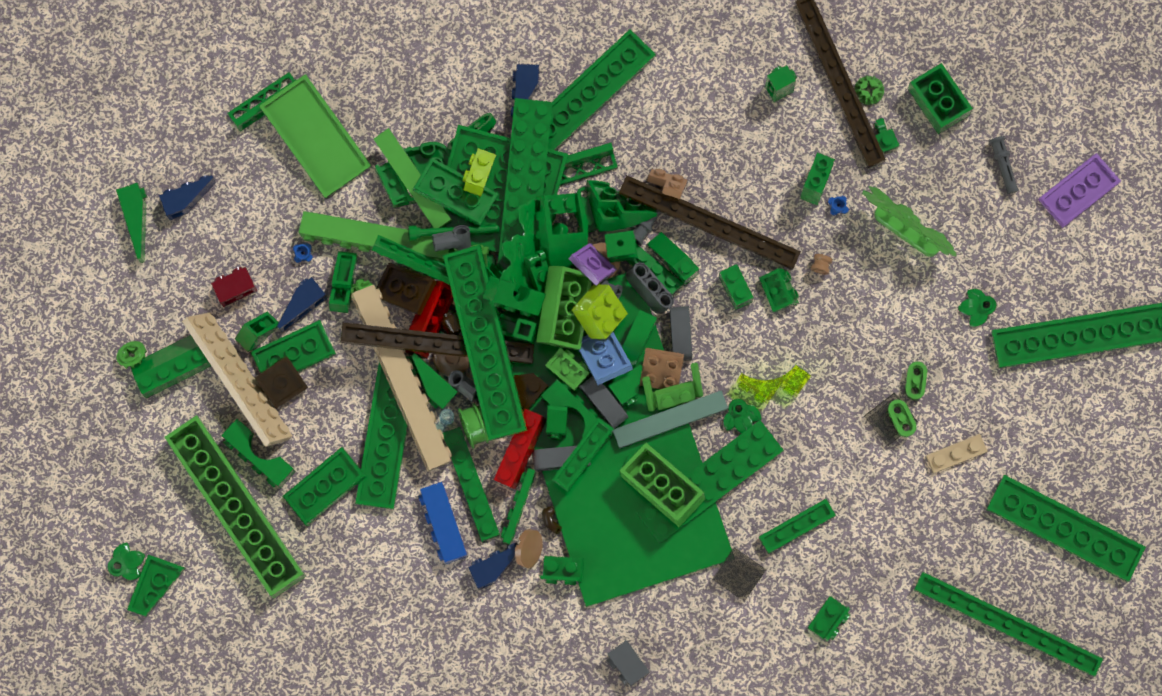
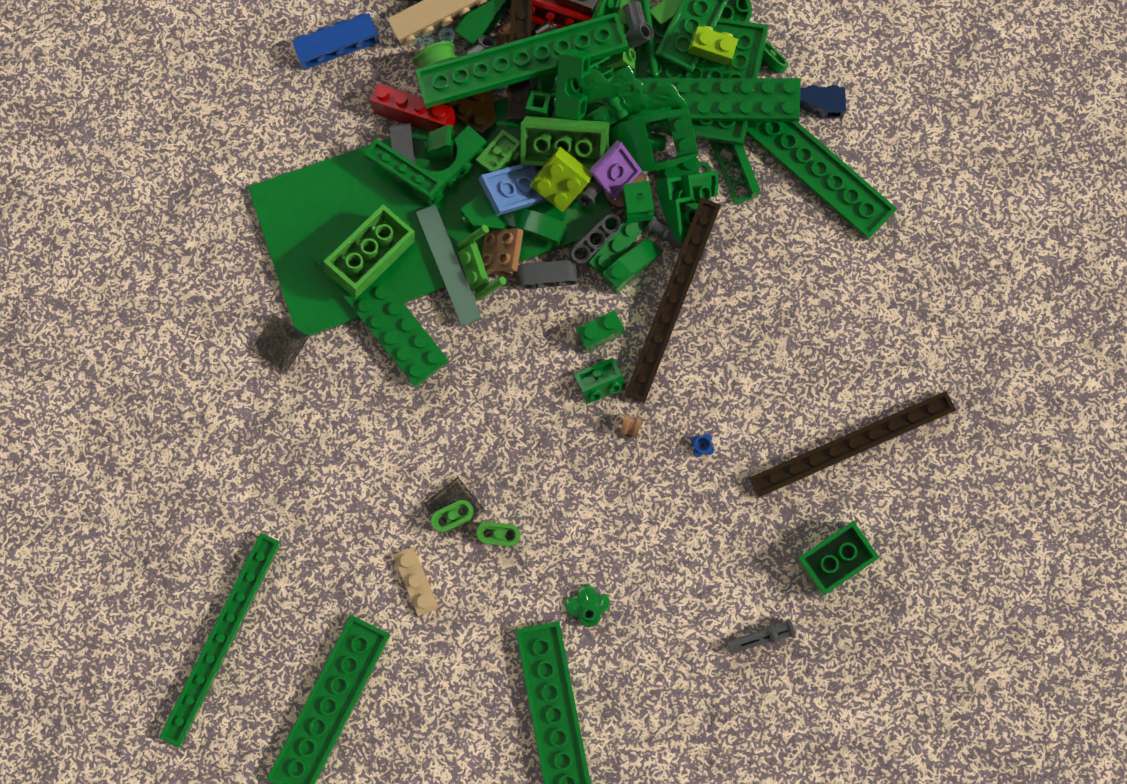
camera: 90 degrees right, 0 degrees up
(471, 484) = (372, 70): green plate -> none
(491, 569) = (285, 89): dark blue slope -> none
(520, 498) = (347, 112): green plate -> none
(529, 548) = (306, 123): medium nougat tile -> none
(547, 514) = (337, 146): dark brown arm -> none
(562, 569) = (284, 160): green bracket -> none
(604, 402) = (461, 194): dark grey beam -> none
(627, 663) = (185, 230): dark grey brick -> none
(672, 184) = (717, 257): medium nougat plate -> none
(743, 419) = (451, 342): green plate -> none
(764, 390) = (482, 365): clear neon green arch -> none
(780, 82) = (843, 373): green brick -> none
(797, 526) = (332, 404): green plate -> none
(817, 178) = (735, 414): green window -> none
(829, 618) = (231, 440): green bracket -> none
(863, 95) = (838, 487): bright green gear -> none
(885, 138) = (785, 499): green plate -> none
(907, 226) = (677, 523): bright green plant -> none
(1079, 190) = (735, 729): medium lavender tile -> none

